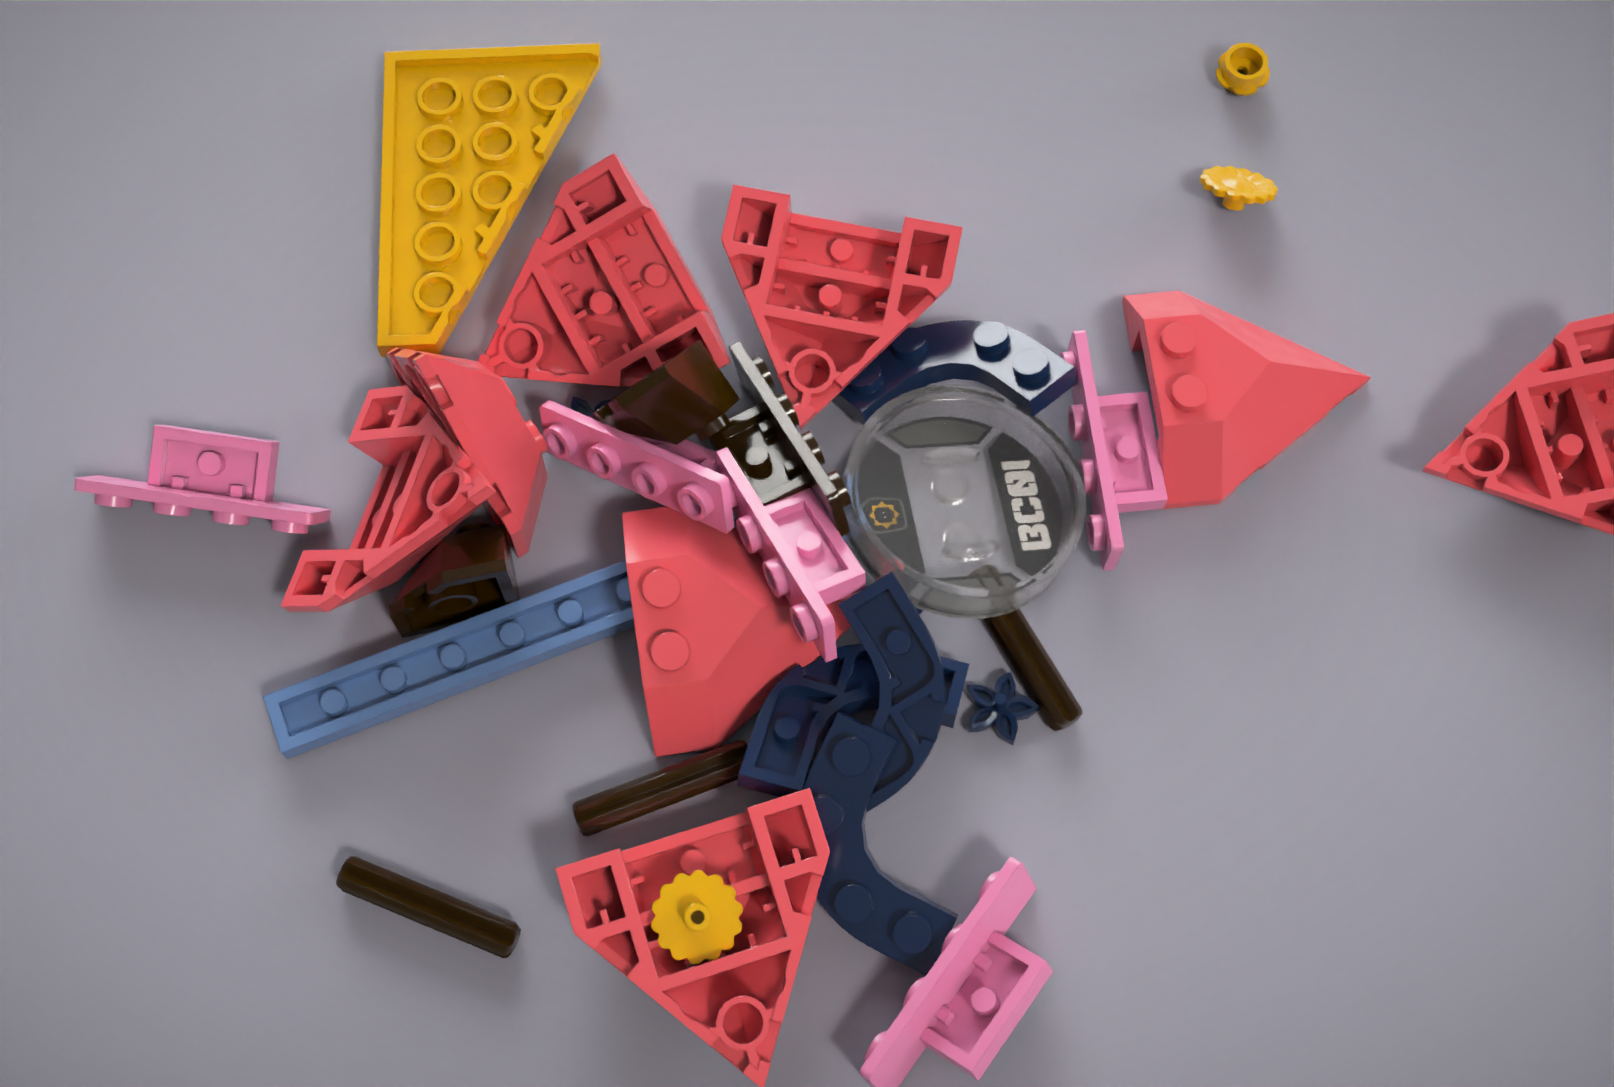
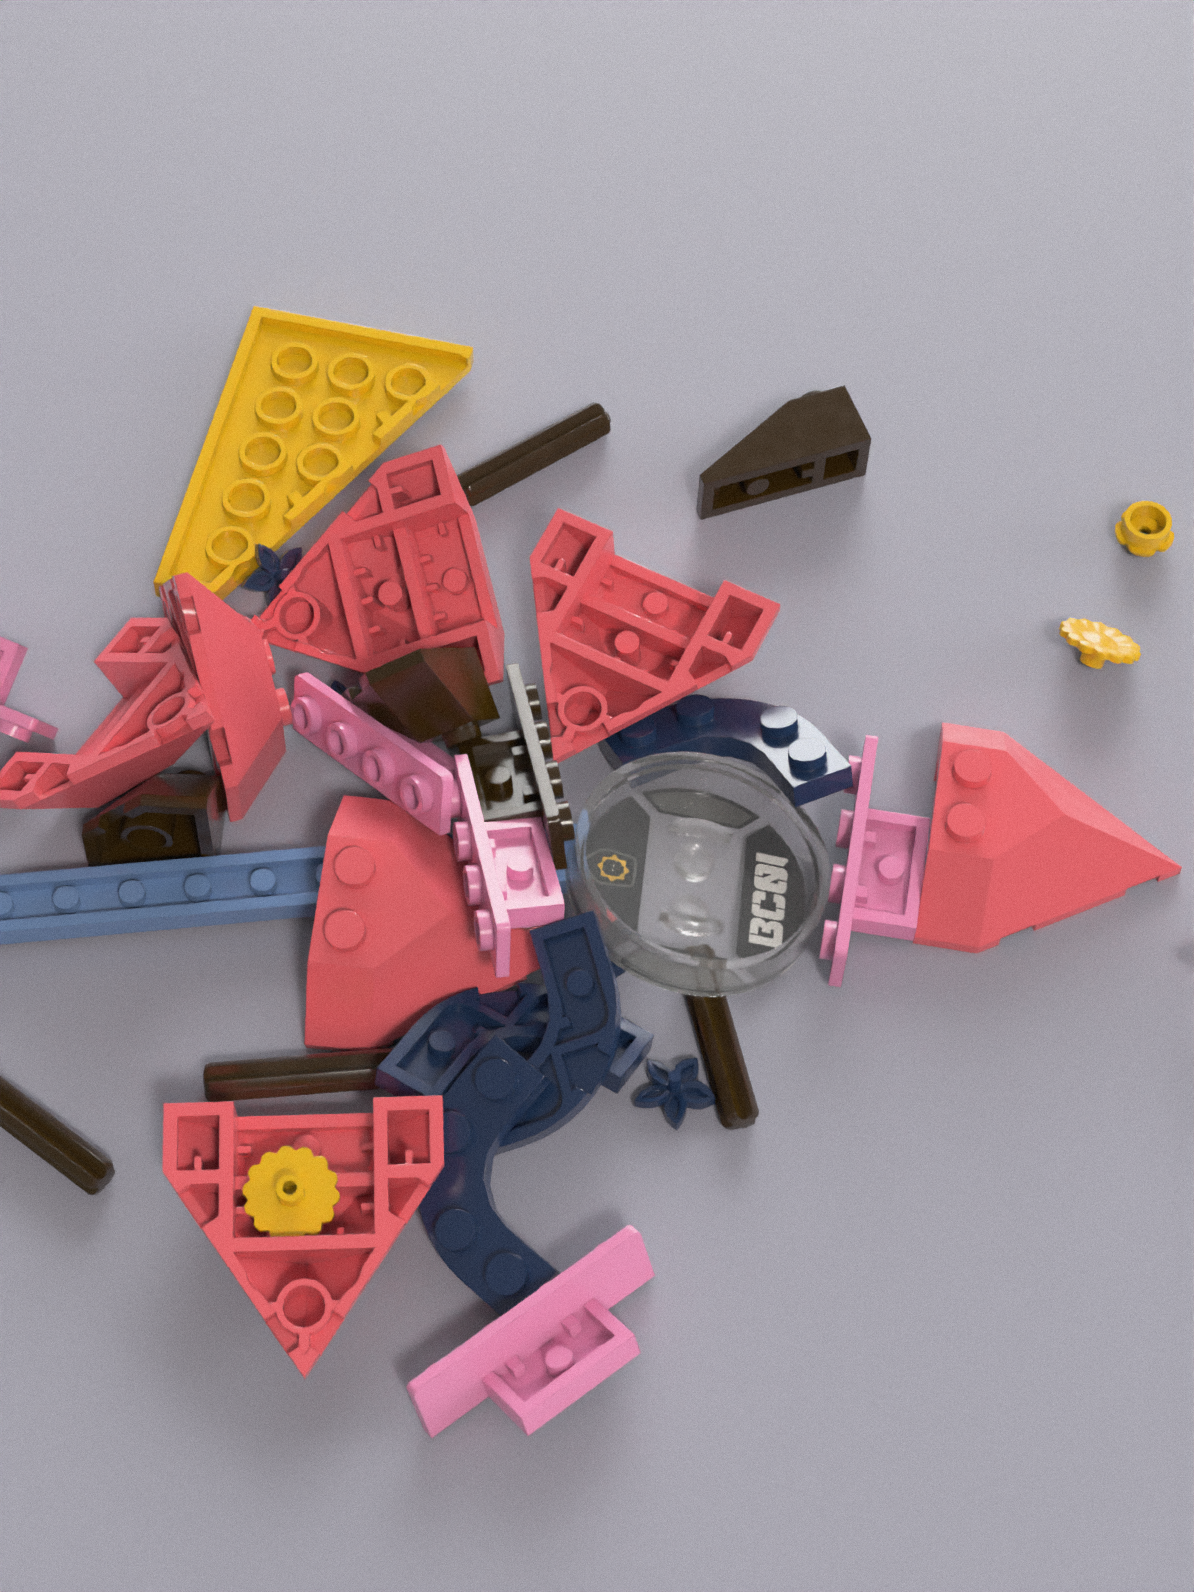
camera: 15 degrees right, 10 degrees down
(486, 307) = (273, 571): none -> dark blue plant
(686, 129) = (534, 453): none -> dark brown axle
(923, 67) = (795, 450): none -> dark brown slope

